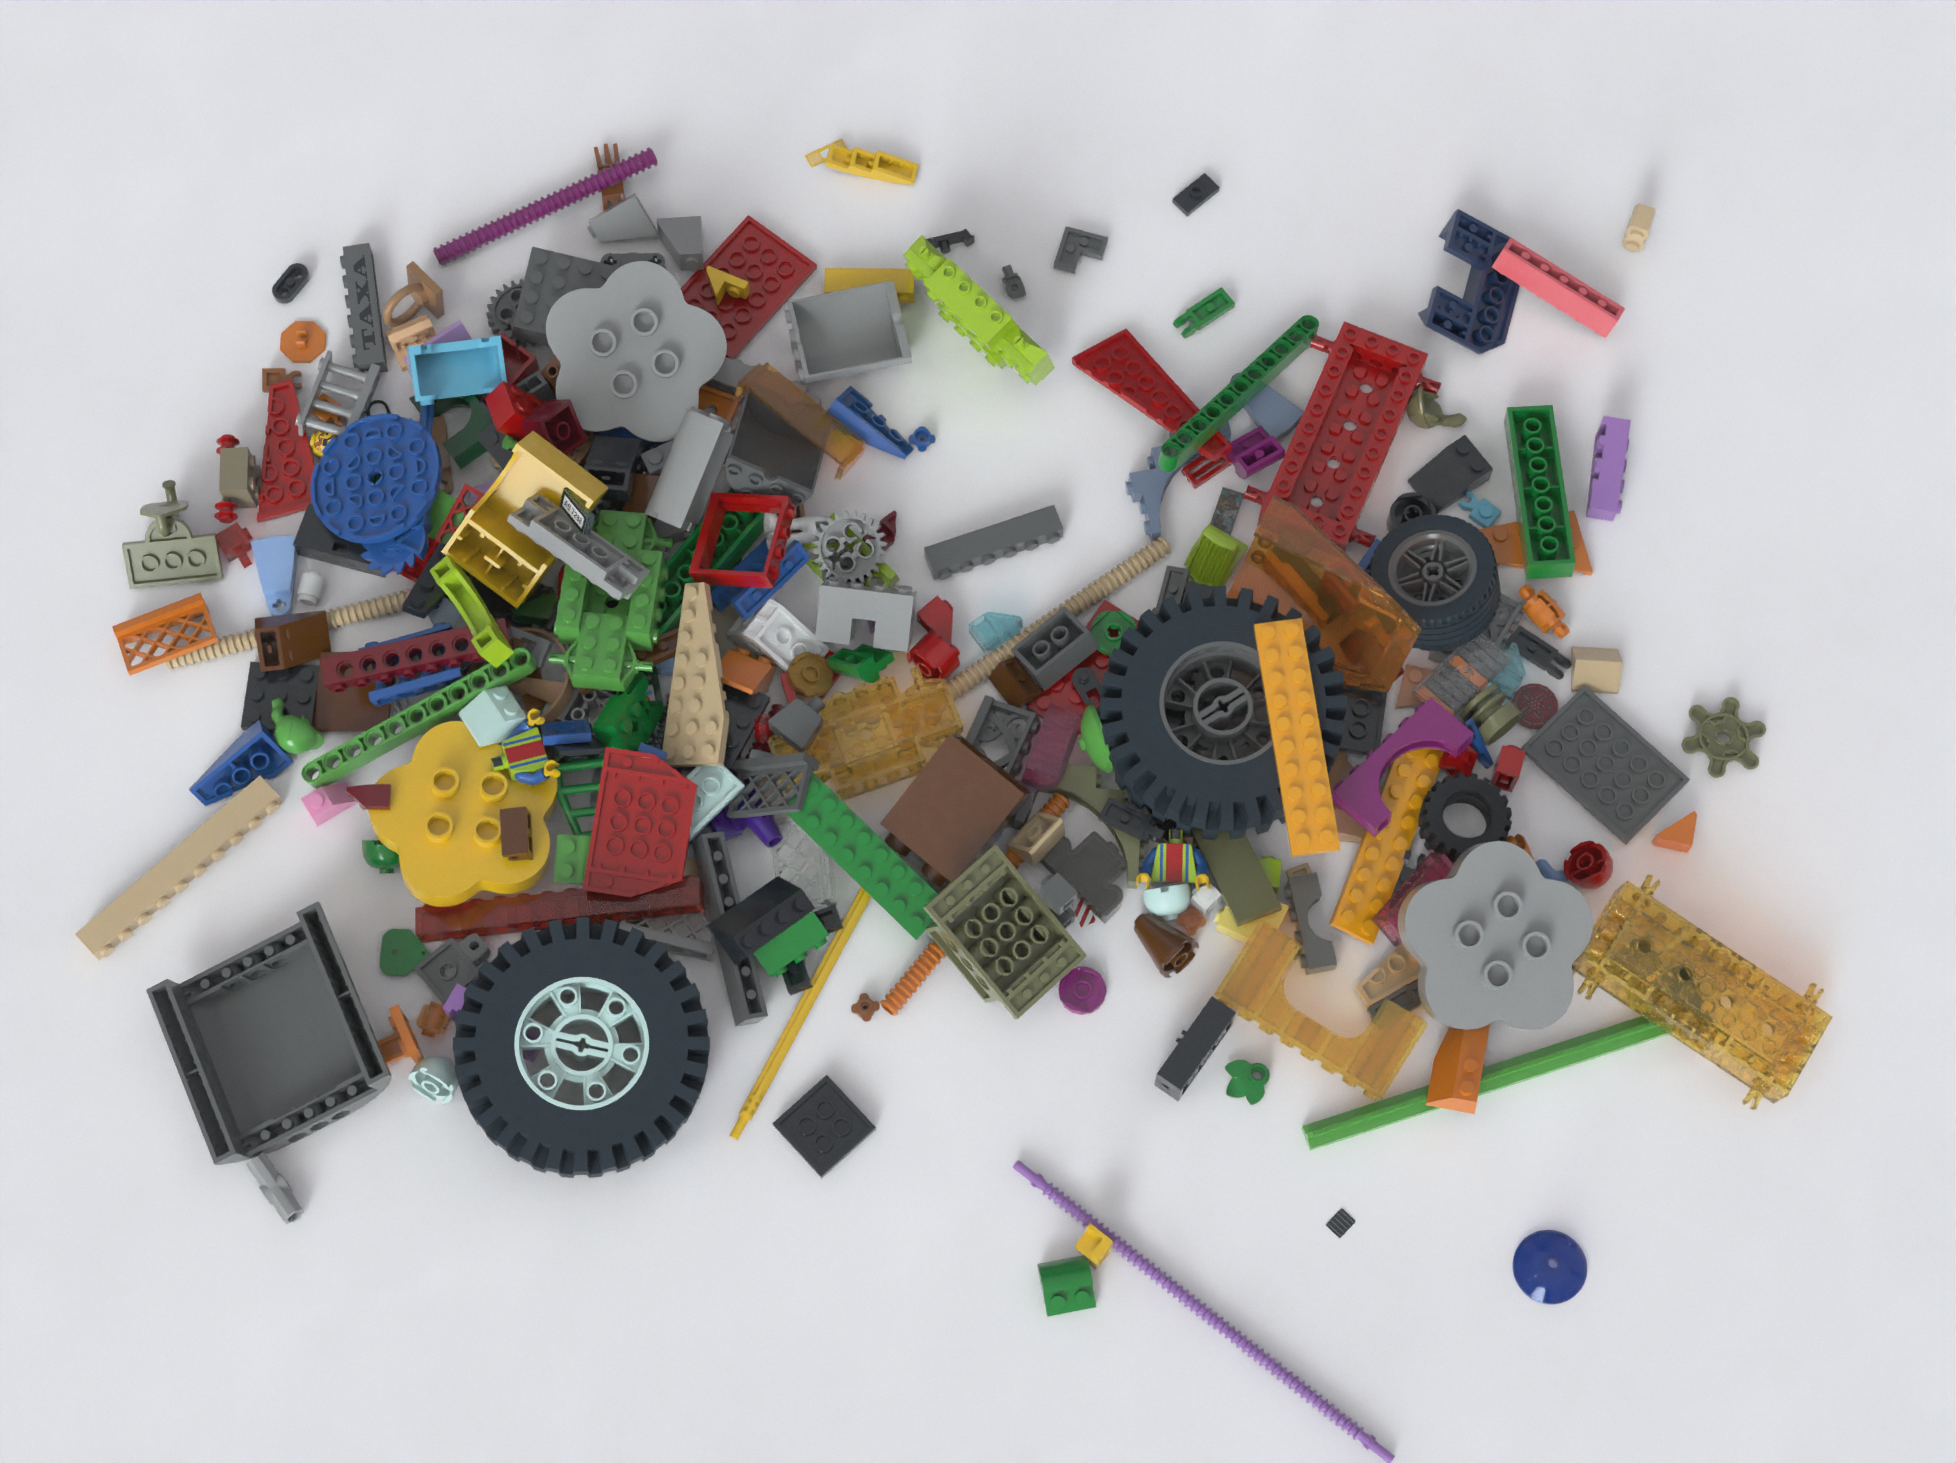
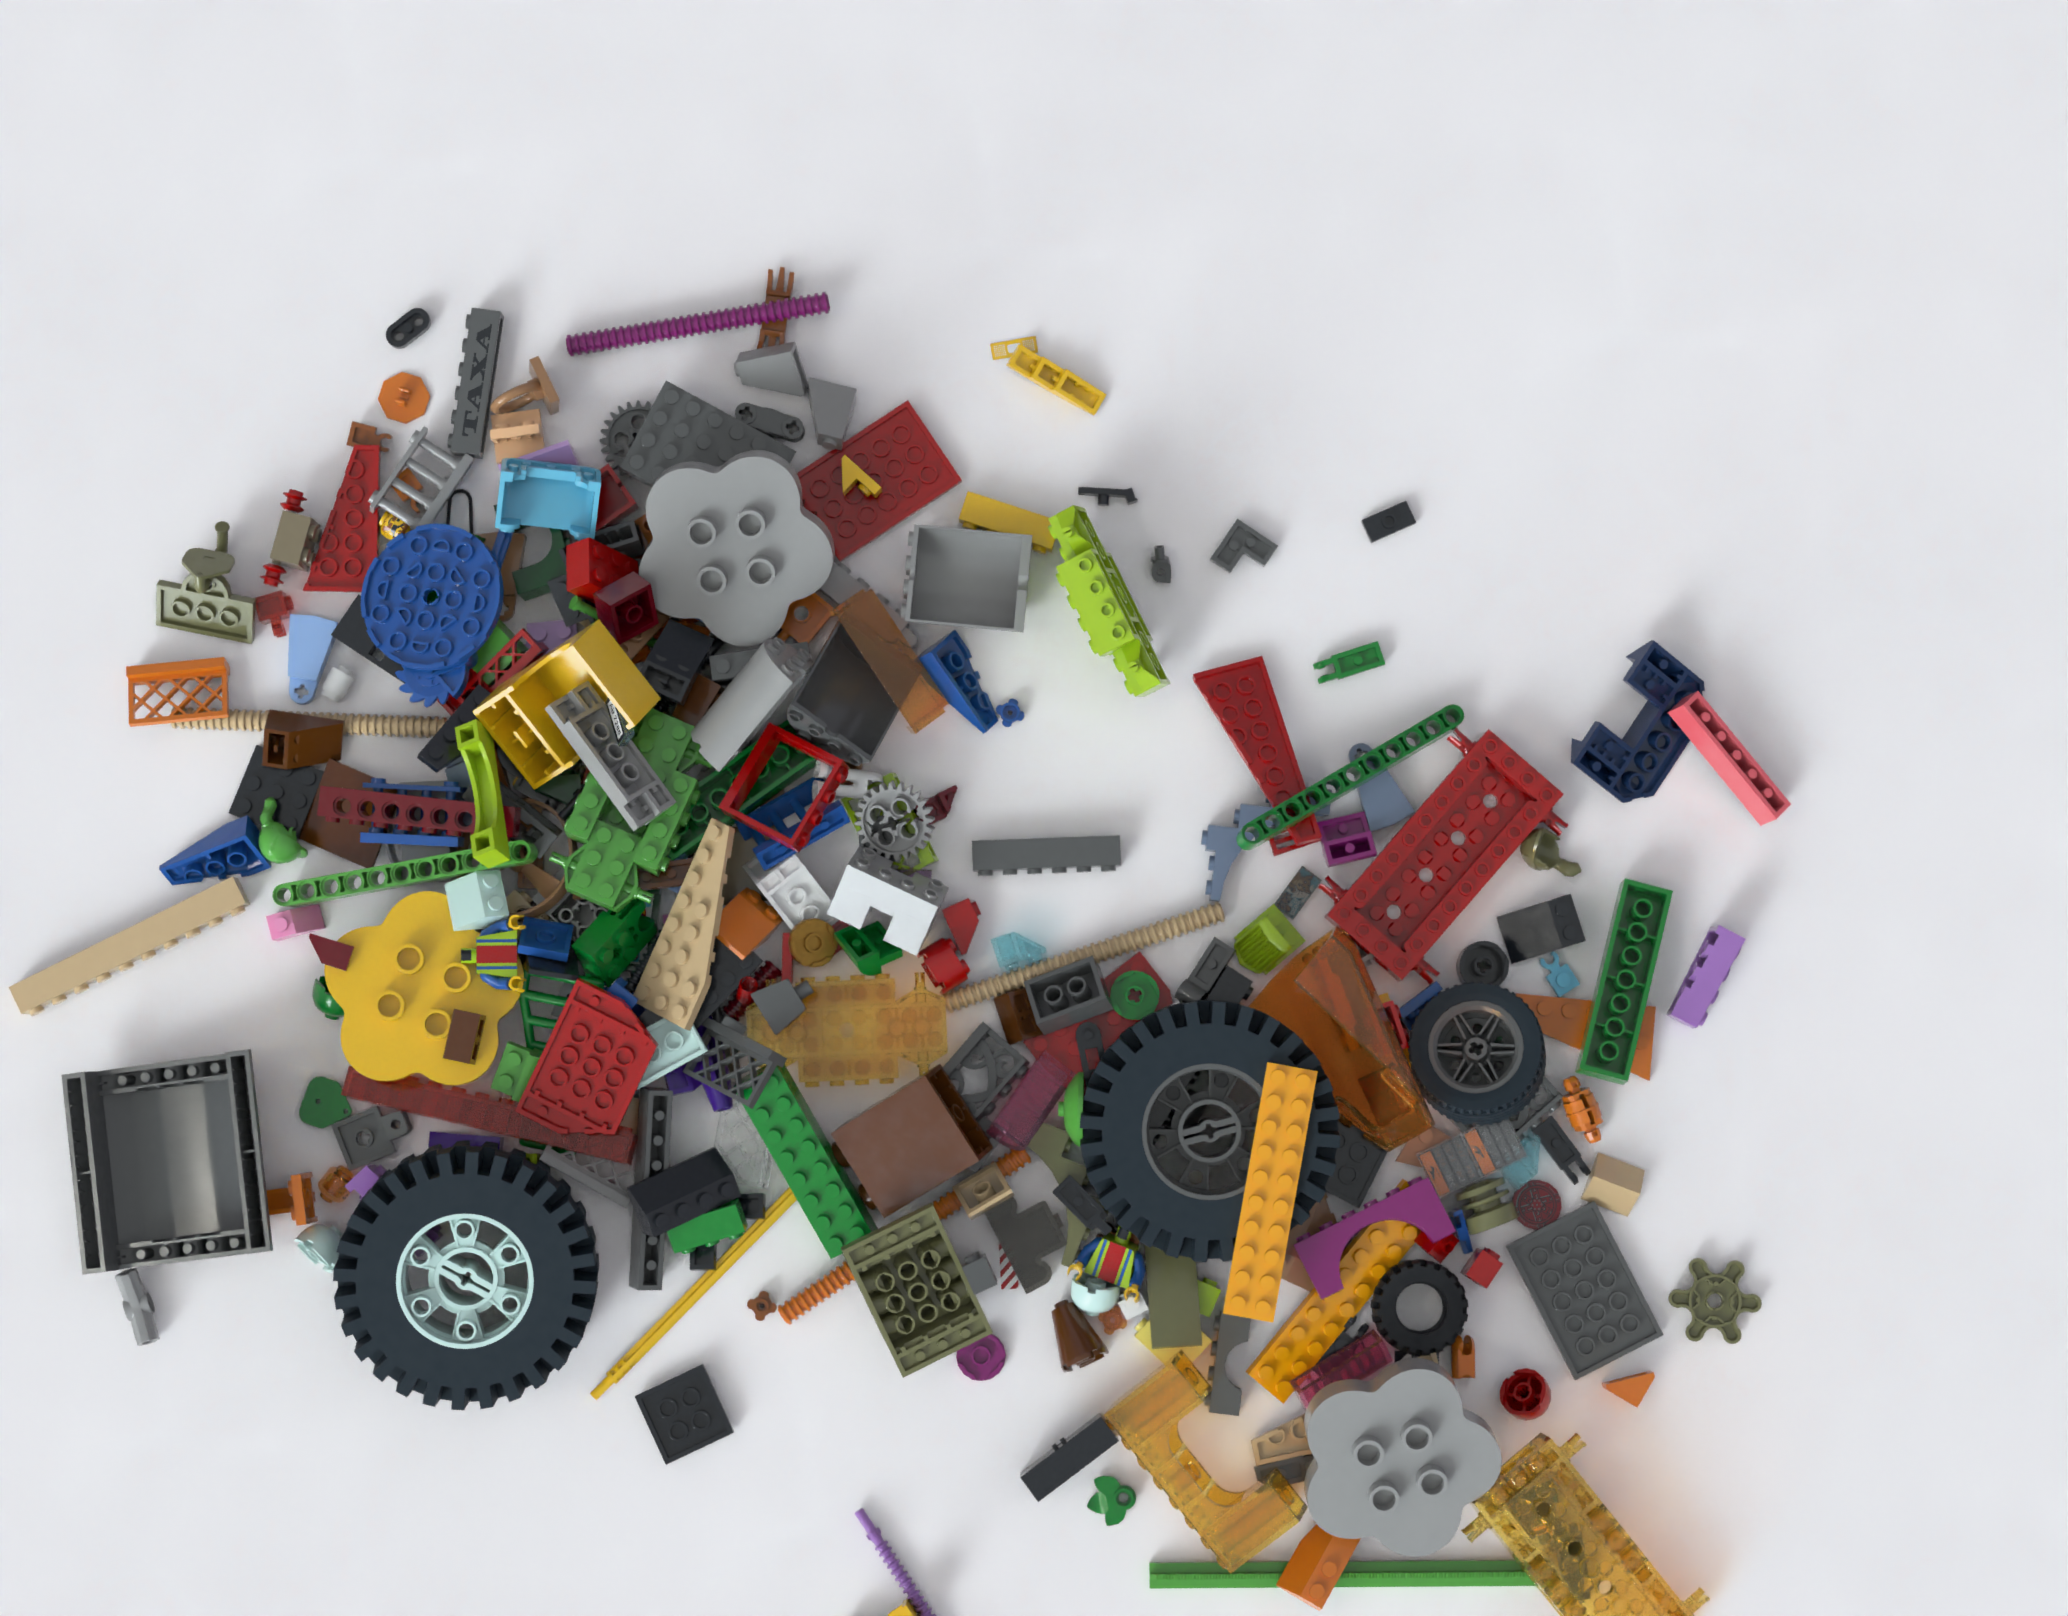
camera: 15 degrees right, 15 degrees up
(1549, 873) = (1484, 1384): medium blue arm -> none
(1638, 227) = (1840, 715): tan brick -> none

